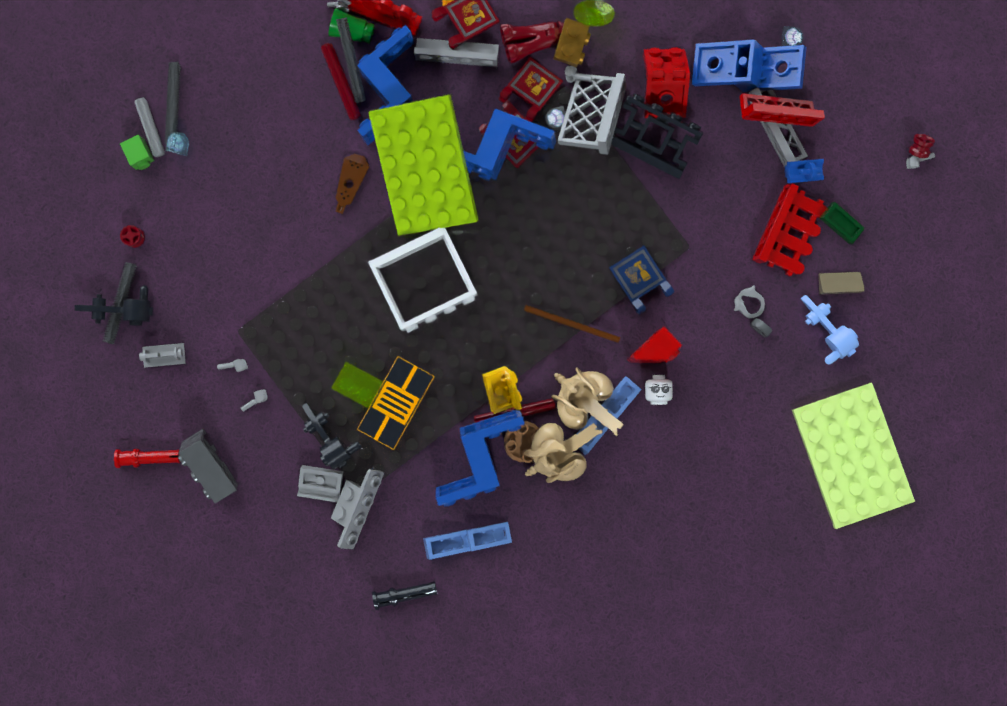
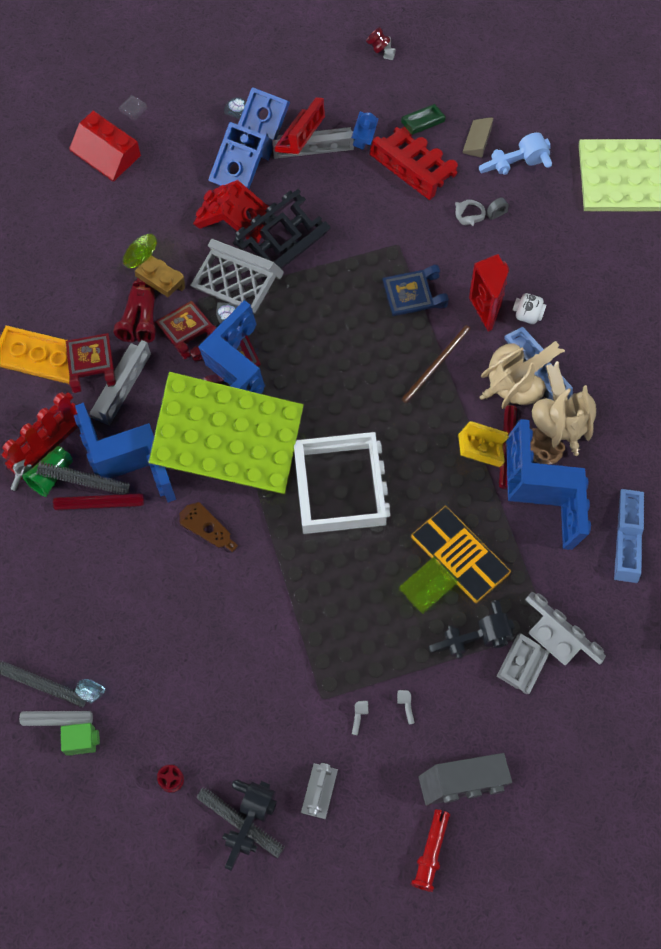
camera: 75 degrees left, 20 degrees down
(571, 75) = (191, 290): light grey hand -> none

